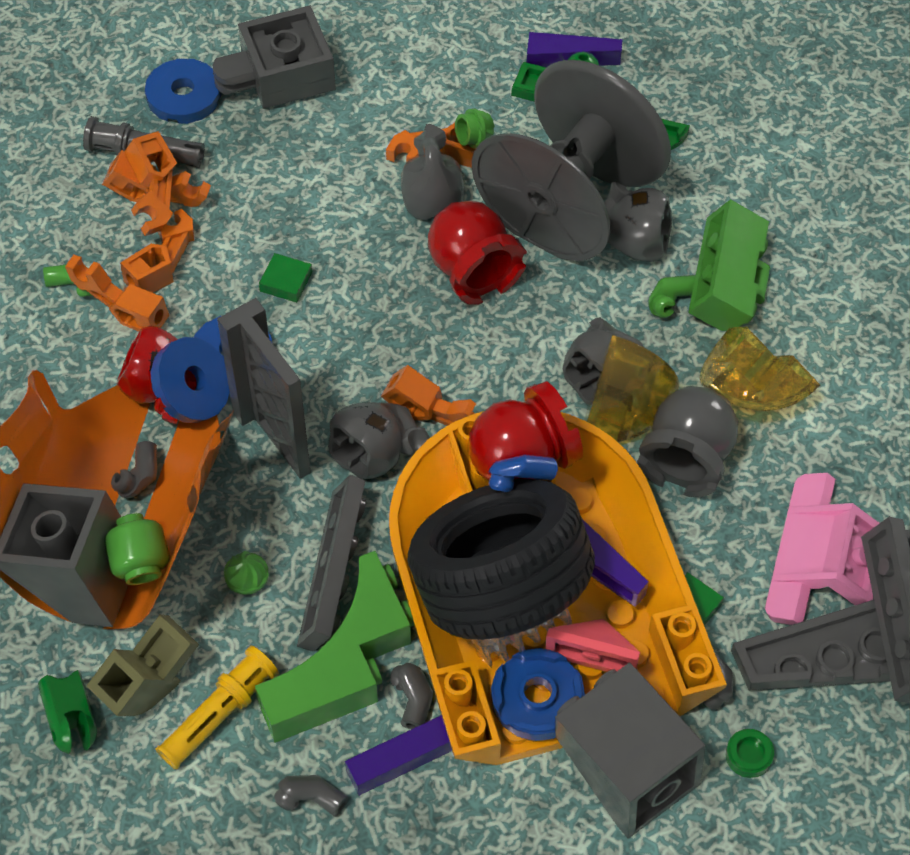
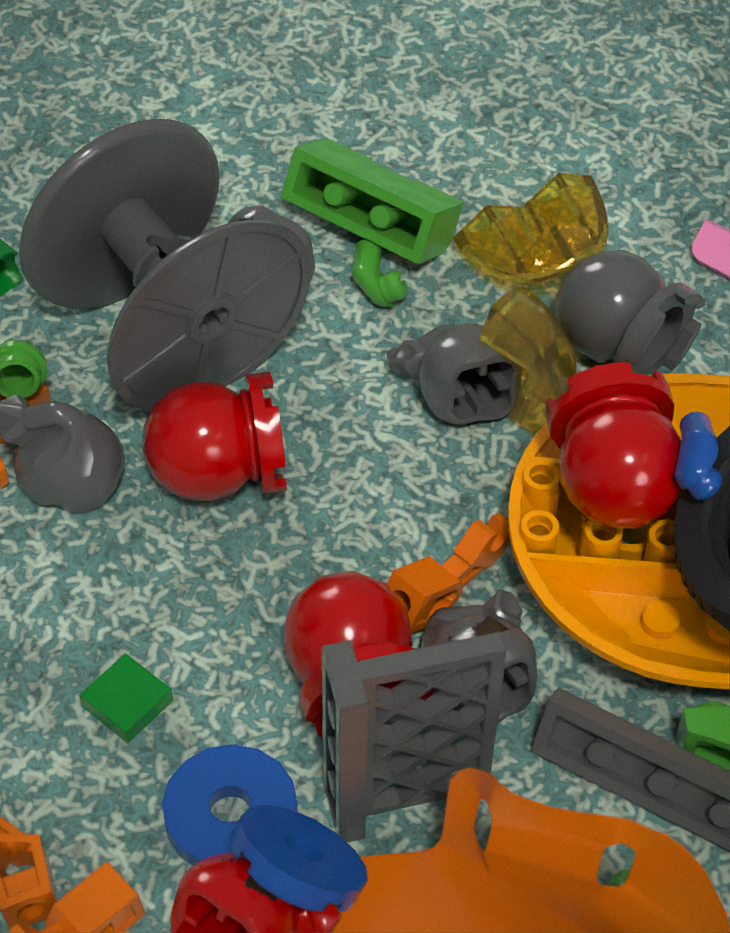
camera: 70 degrees left, 5 degrees down
(347, 363) = (340, 610): none -> red tile

